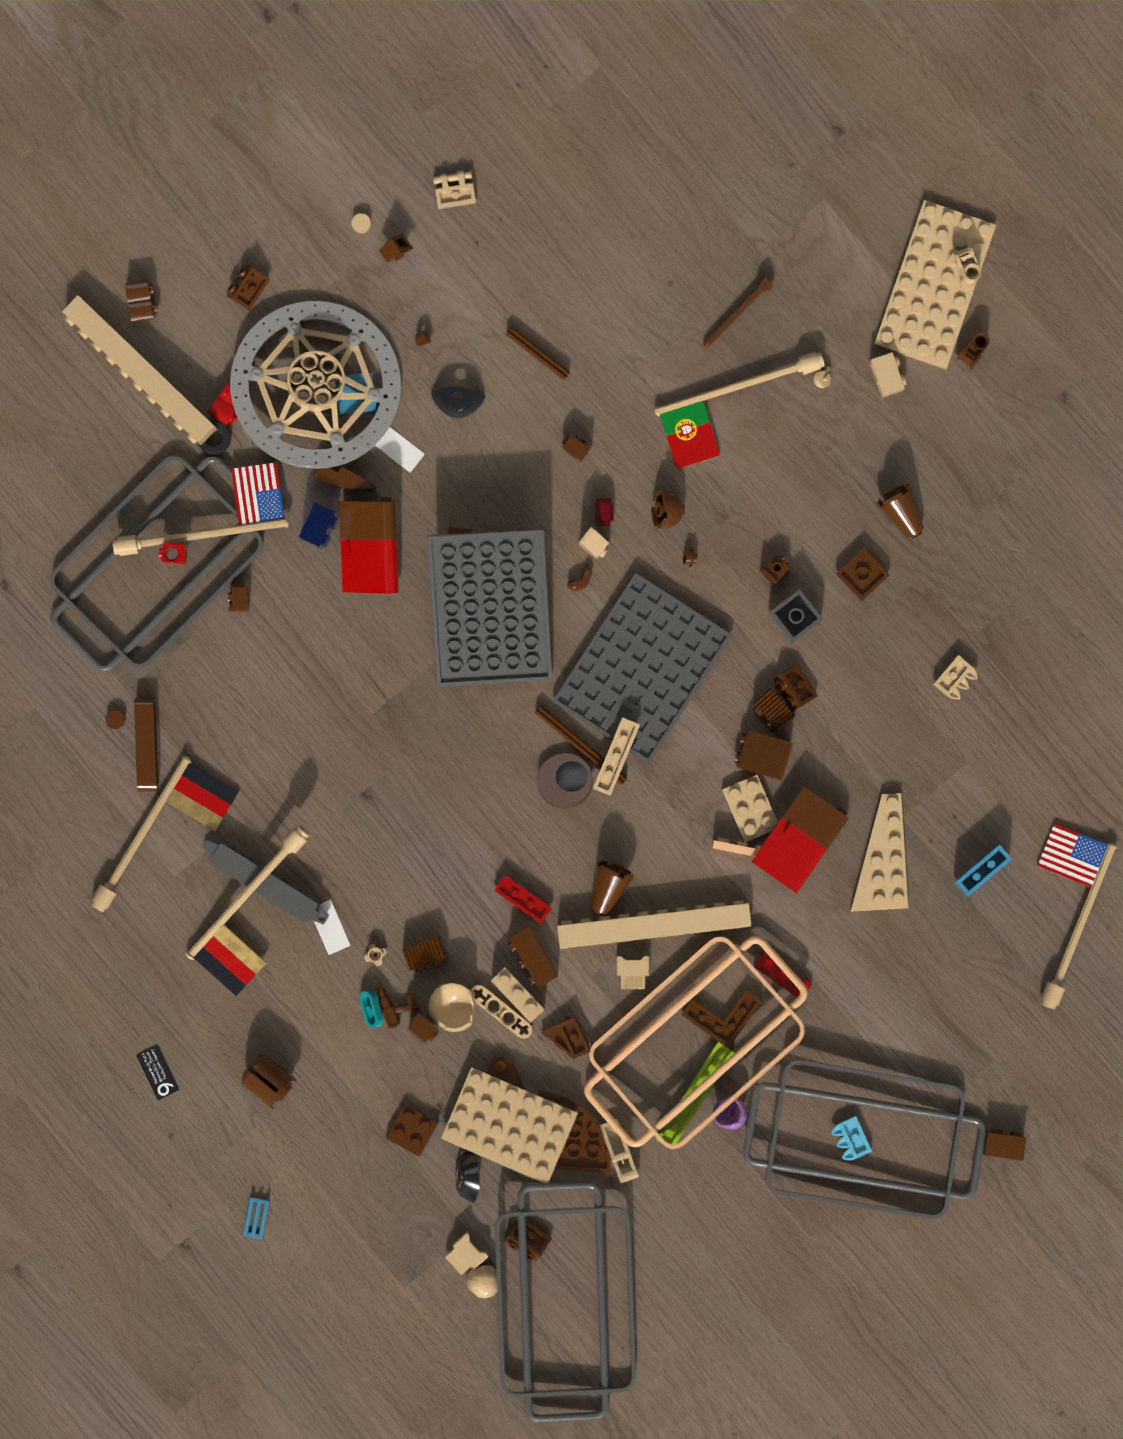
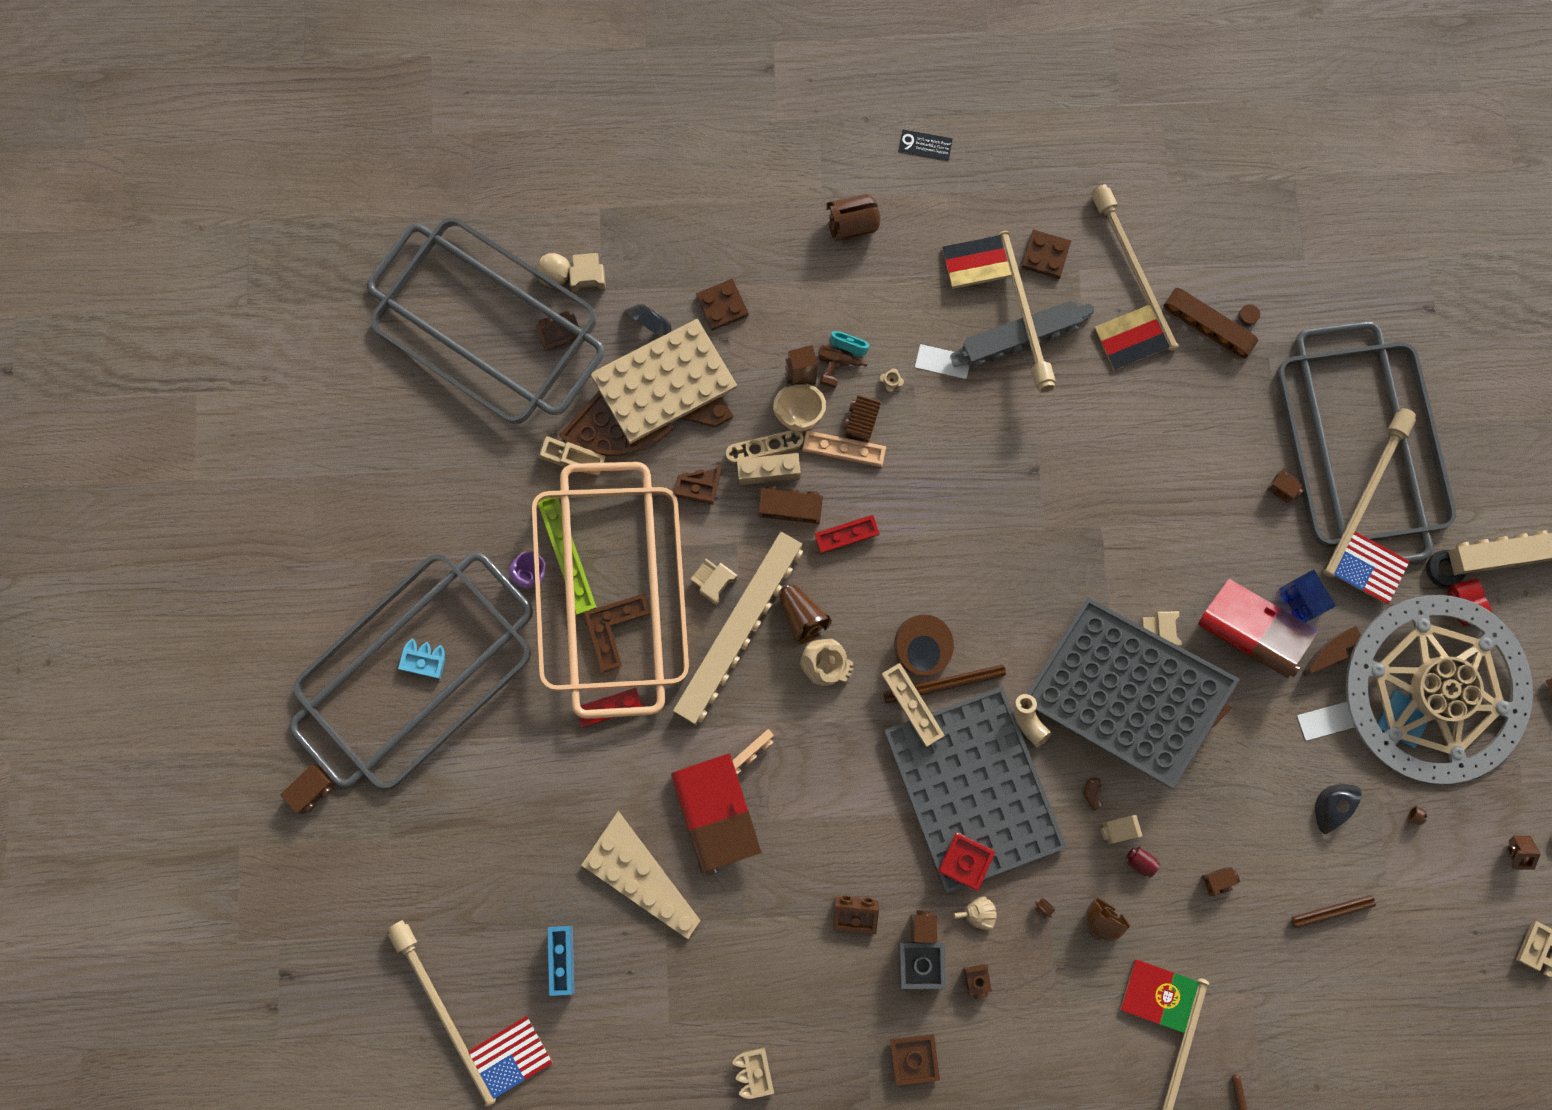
camera: 125 degrees right, 10 degrees down
(181, 558) = (1359, 460): red brick -> none
(181, 911) = (1046, 254): none -> reddish brown plate
(247, 1224) = (737, 124): dark azure tile -> none
(420, 615) = (1163, 625): none -> tan piece
(457, 950) = (844, 448): none -> light nougat tile
(564, 663) = (1029, 722): none -> tan cylinder
(632, 842) = (826, 662): none -> tan helmet
(700, 636) = (966, 861): none -> red plate
(728, 601) = (979, 914): none -> tan piece
(750, 808) = (777, 791): tan plate -> none
(763, 755) = (816, 838): reddish brown slope -> none
(768, 634) = (924, 927): none -> reddish brown brick
(774, 710) = (849, 879): reddish brown brick -> none

